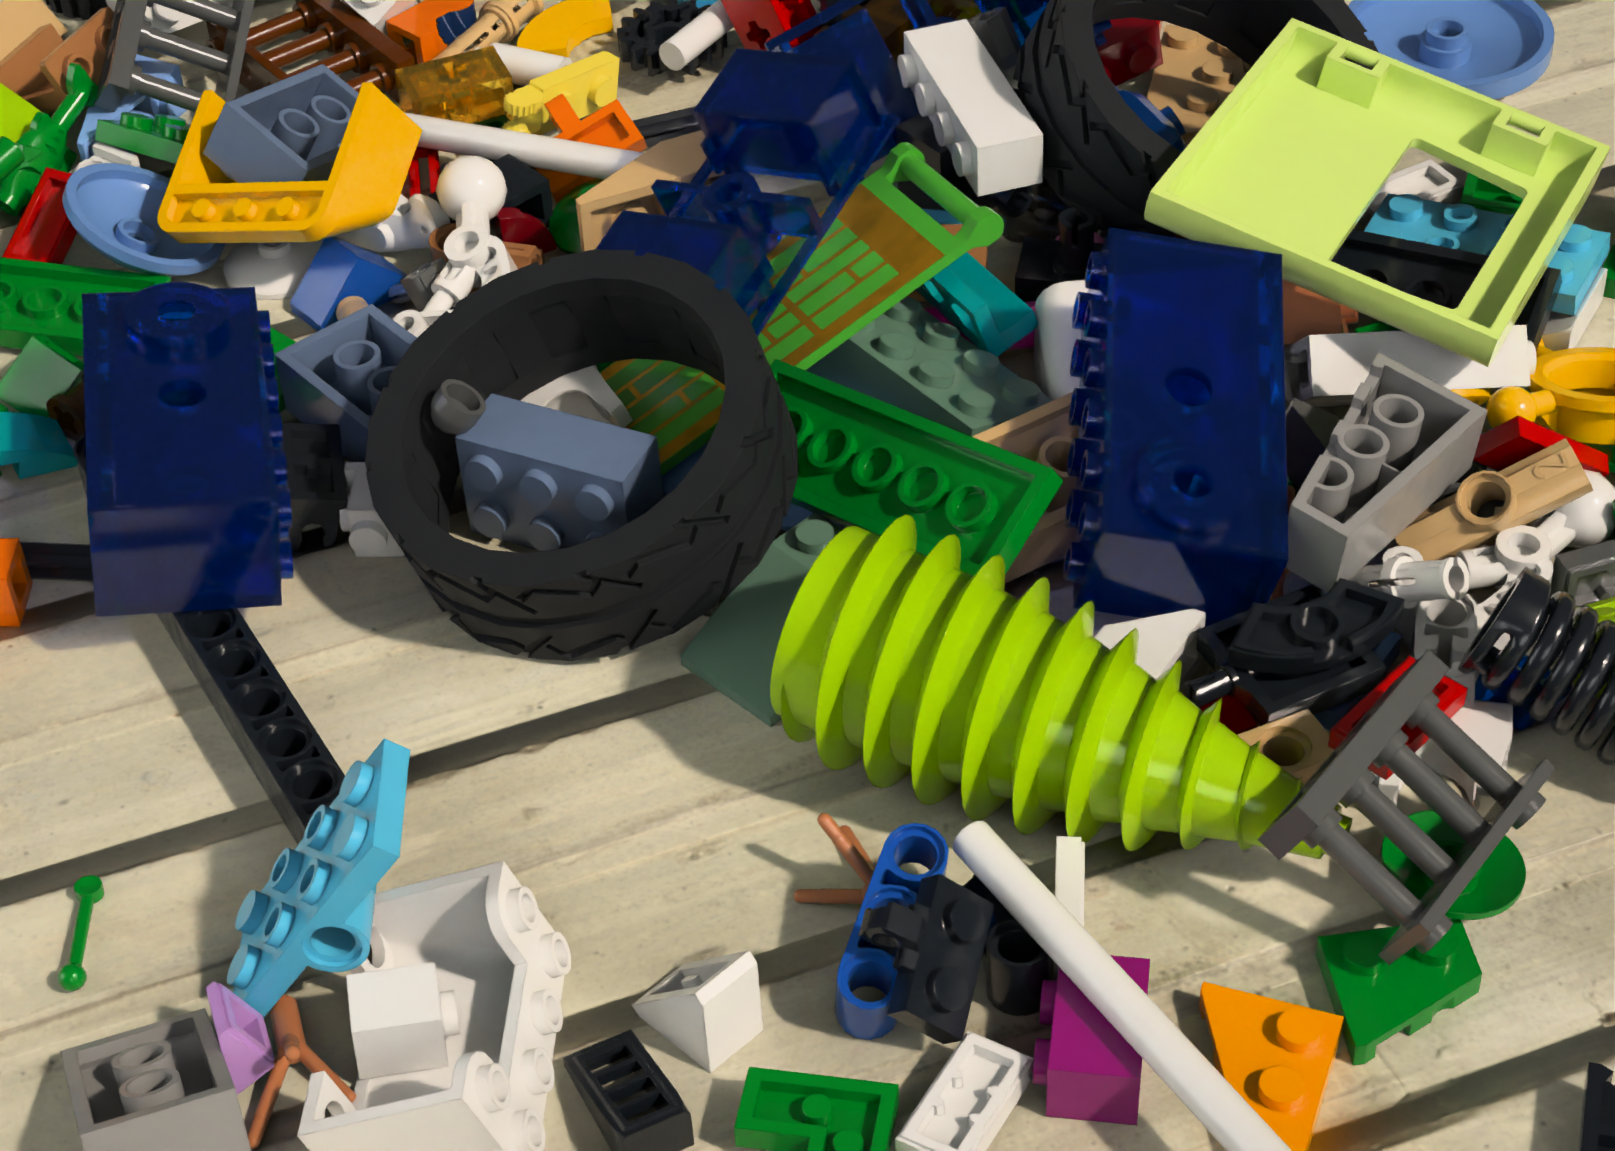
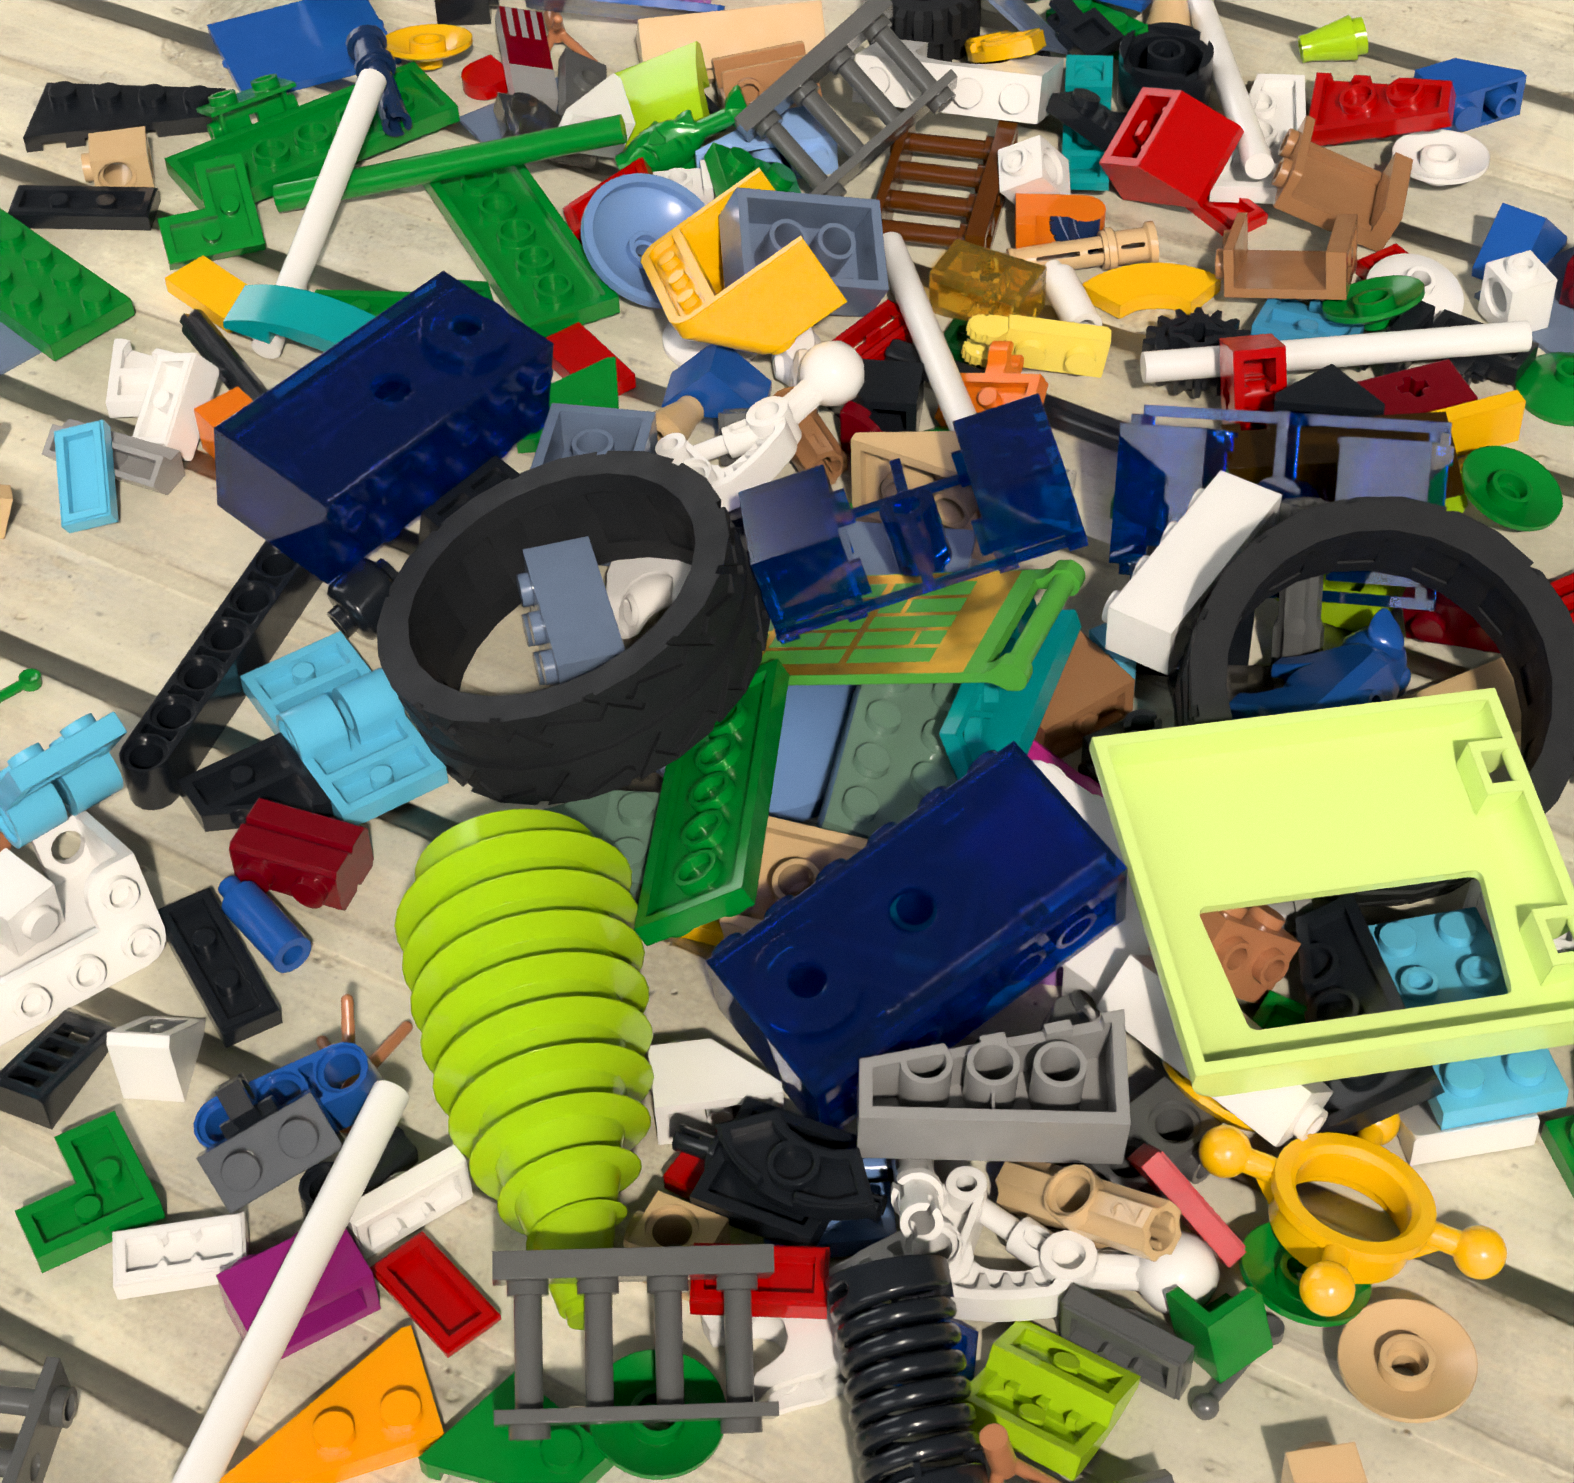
camera: 50 degrees right, 5 degrees up
(320, 599) = (359, 597): none -> black head
(453, 691) = (345, 728): none -> medium azure plate
(456, 407) = (542, 524): dark grey hinge -> none
(459, 783) = (268, 770): none -> black wing
(577, 791) = (301, 854): none -> dark red brick
(622, 860) = (264, 924): none -> blue cylinder
(639, 921) = (219, 968): none -> black tile
(1187, 951) = (435, 1294): none -> red tile

